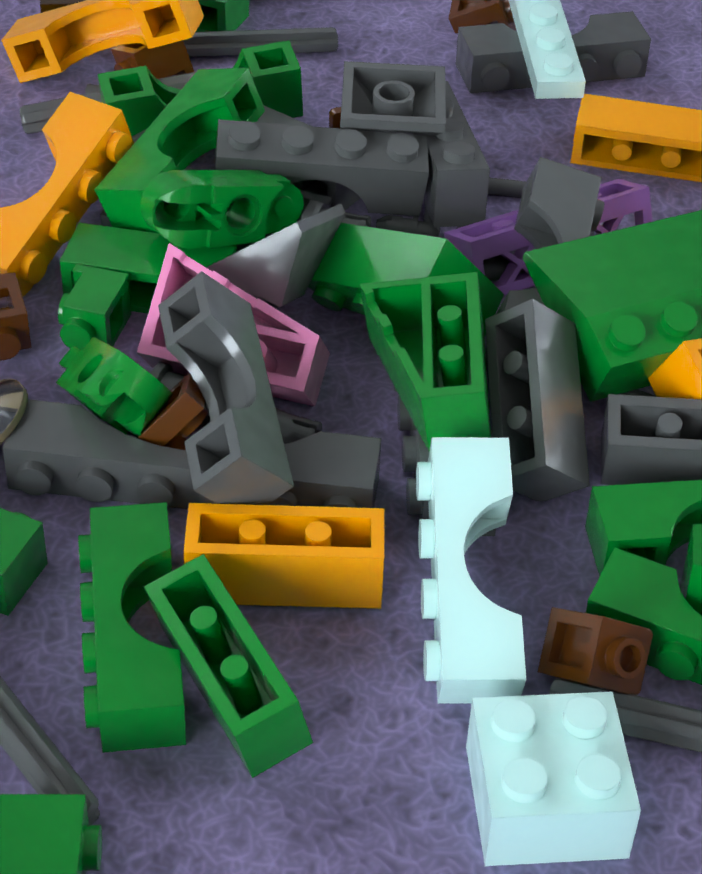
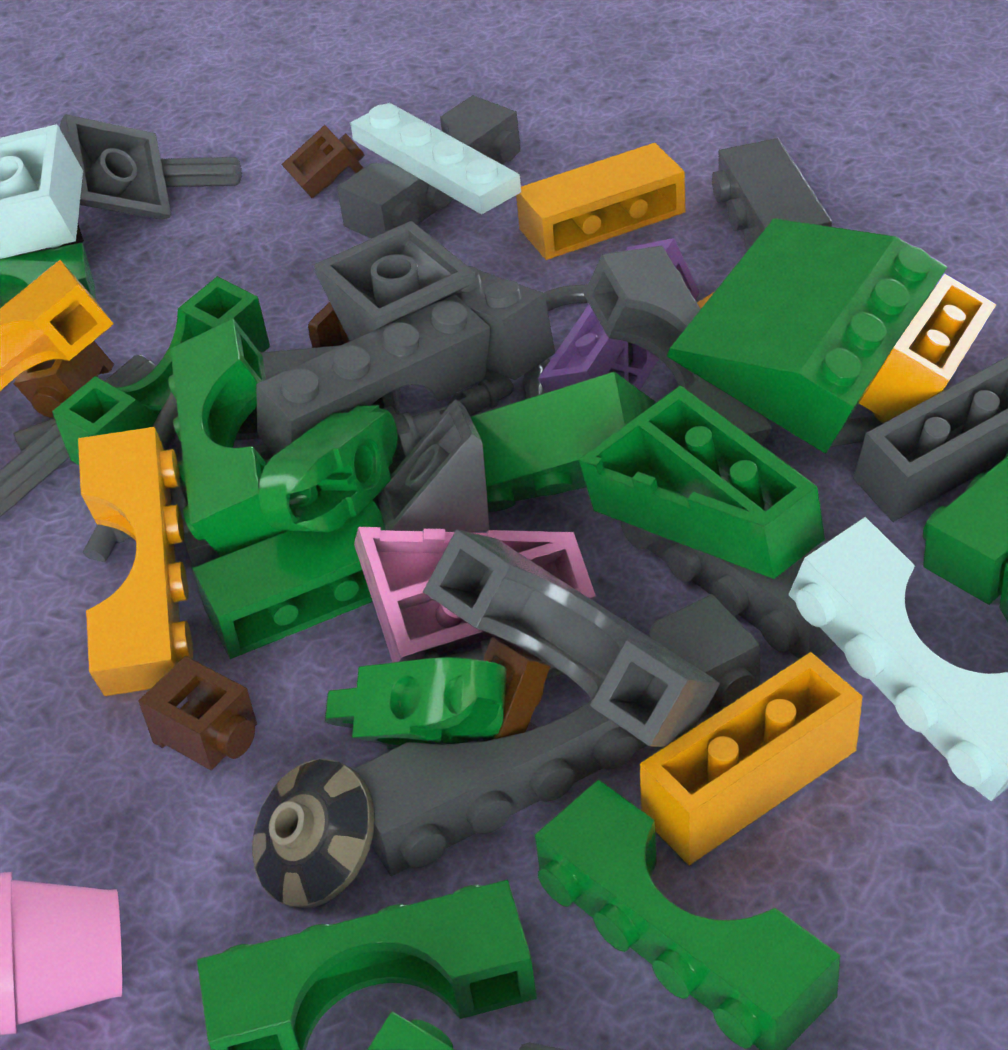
camera: 30 degrees left, 0 degrees up
(95, 306) = (288, 645): green brick -> none
(229, 665) = (835, 889): green brick -> none
(231, 42) = (160, 291): dark grey axle -> none
(538, 399) = (790, 434): dark grey brick -> none

